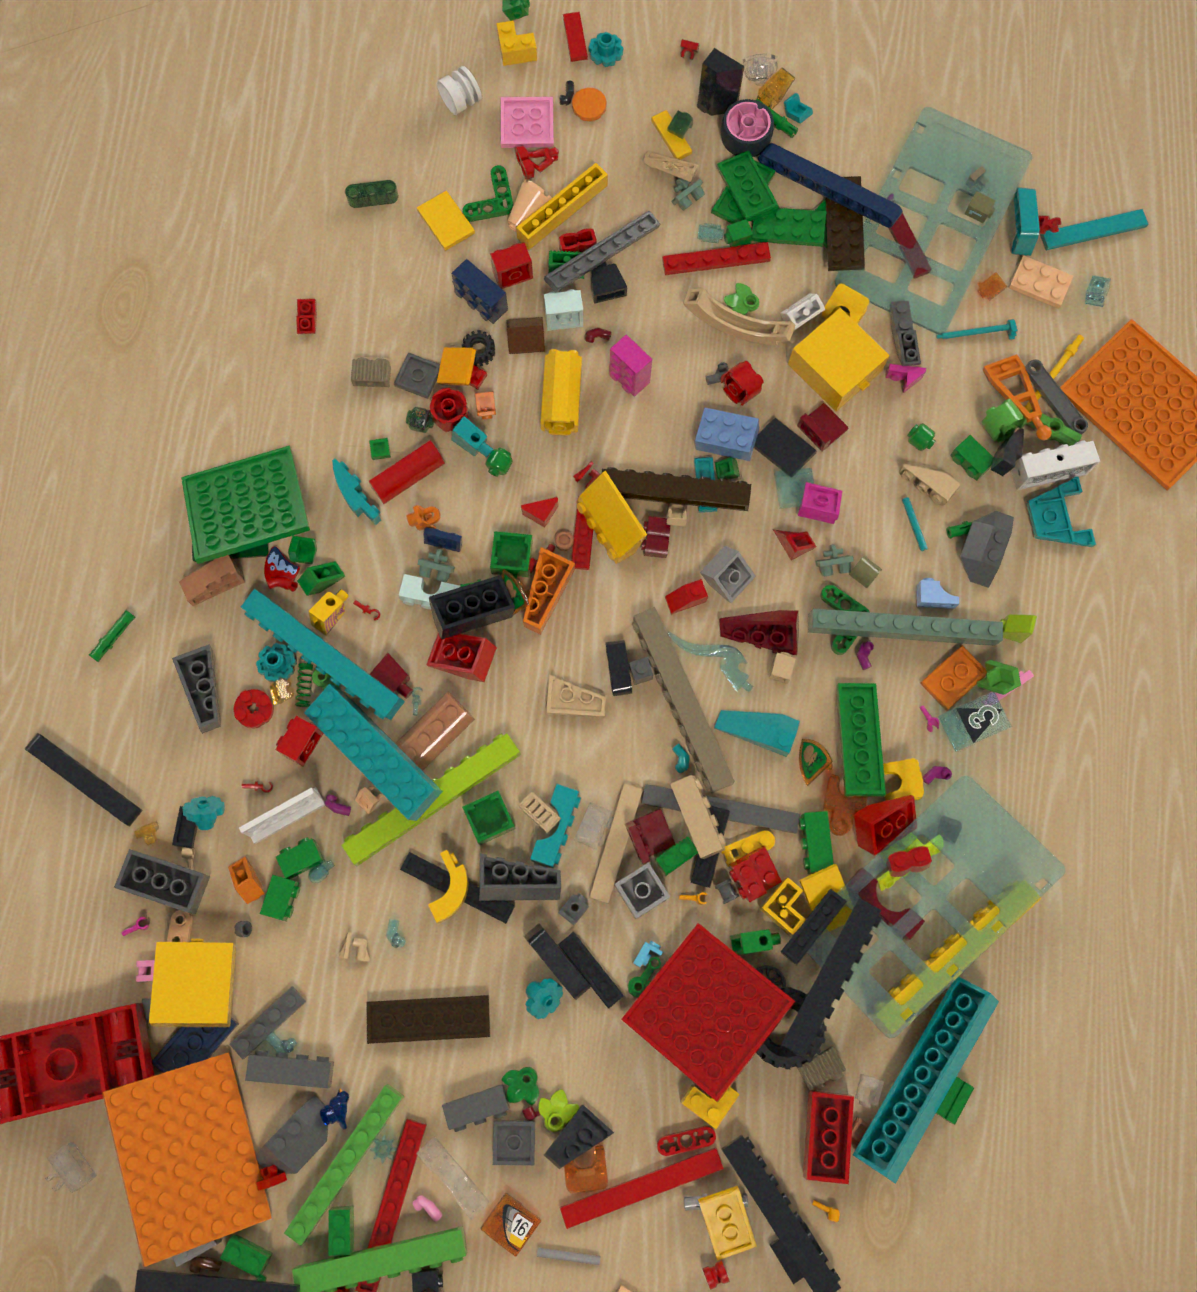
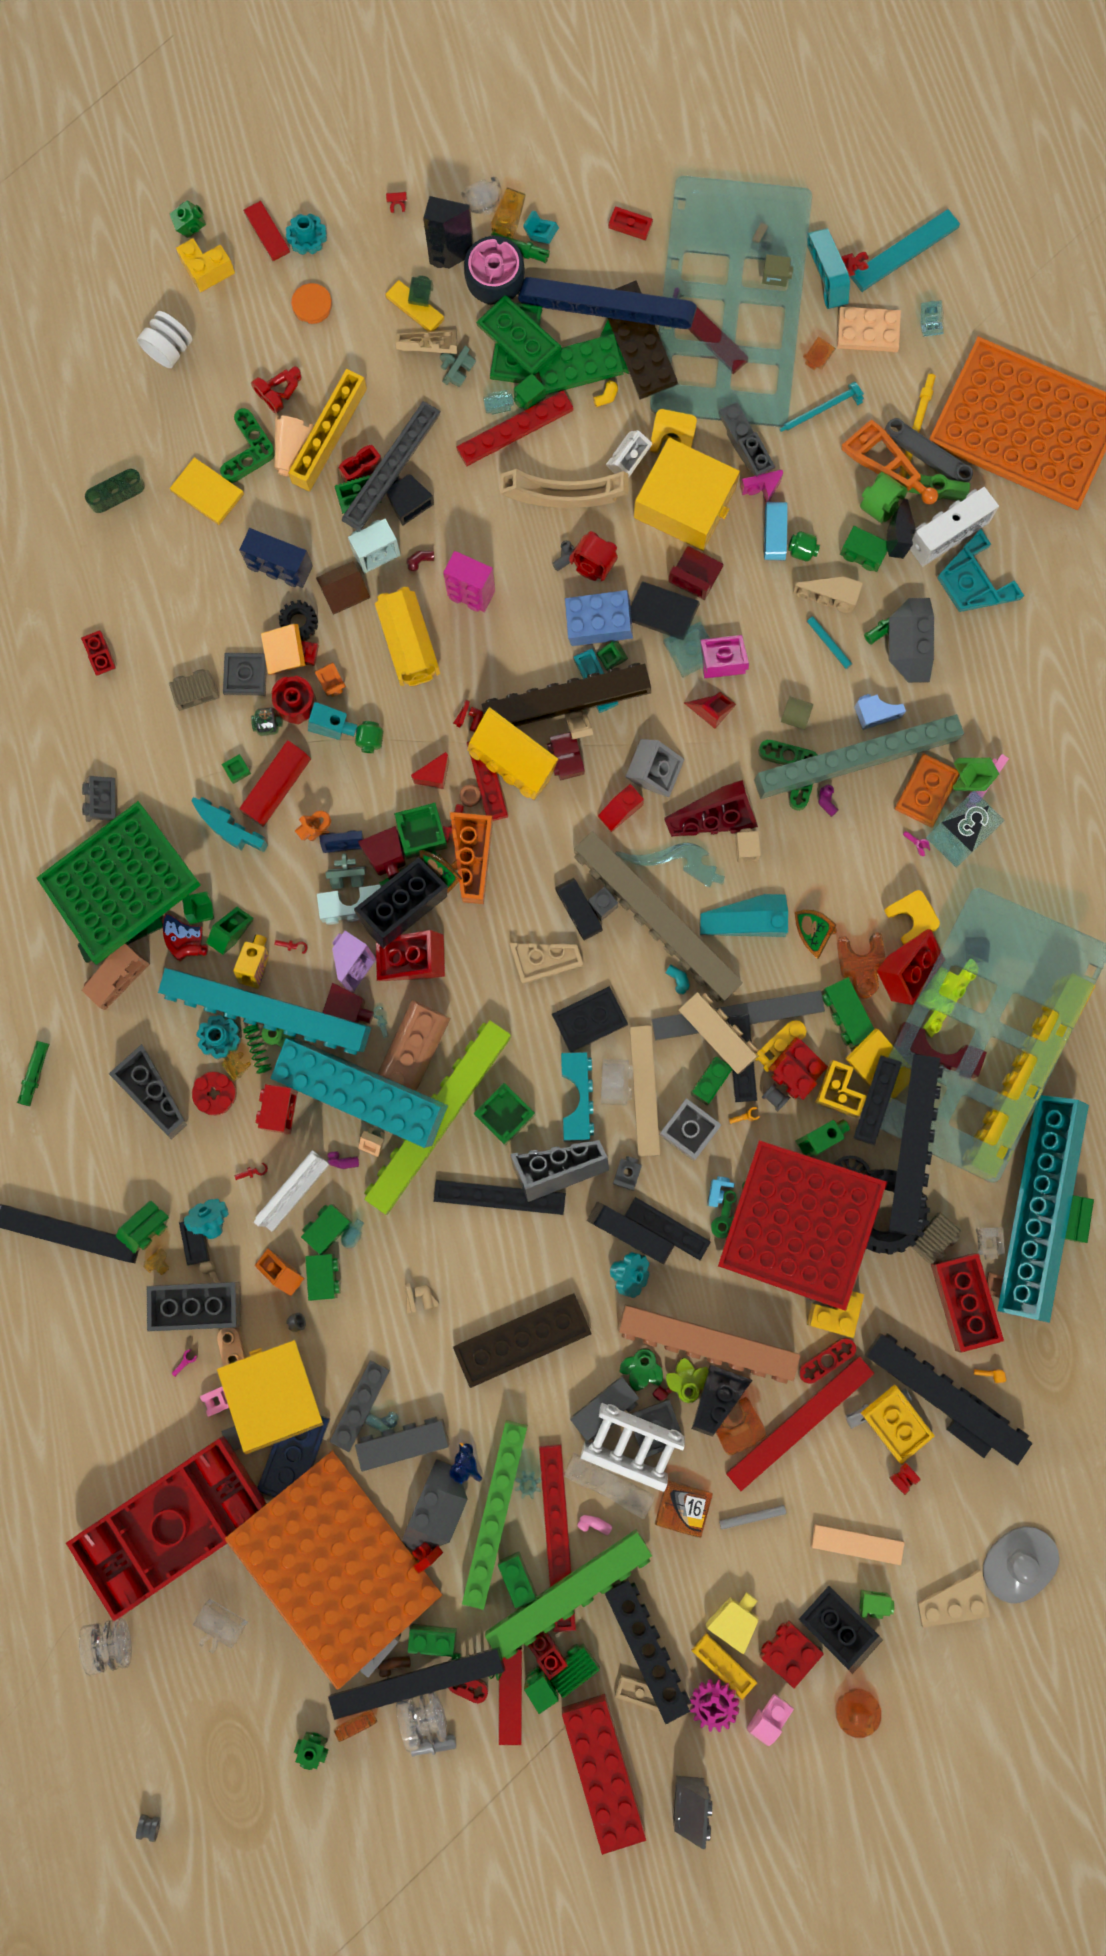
camera: 15 degrees left, 5 degrees up
(147, 797) = (142, 1227): none -> green brick
(259, 432) = (99, 798): none -> dark grey bracket
(392, 935) = (452, 1270): clear light blue arm -> none
(409, 639) = (351, 960): none -> lavender slope
(455, 896) = (501, 1209): yellow arch -> none
(473, 1165) = (632, 1468): none -> white fence
(474, 560) = (384, 852): none -> dark red torso
(511, 265) = (299, 516): red brick -> none
(527, 122) = (252, 348): bright pink plate -> none
(531, 803) = (543, 1082): tan slope -> none
(566, 99) = (285, 296): black arm -> none
(588, 1084) = (708, 1342): none -> nougat brick
(592, 764) = (590, 1019): none -> black tile
(650, 835) = (676, 1069): dark red bracket -> none
(739, 300) = (557, 467): bright green plate -> none
(804, 258) = (608, 396): none -> yellow arm
(843, 562) = (770, 711): sand green hips -> none
(860, 739) = (855, 891): green plate -> none
(873, 130) = (630, 223): none -> red plate
(902, 416) = (775, 531): none -> medium azure beam
(903, 862) = (954, 996): red brick -> none
(937, 772) = (945, 895): magenta arm -> none
(1018, 627) = (975, 713): lime slope -> none

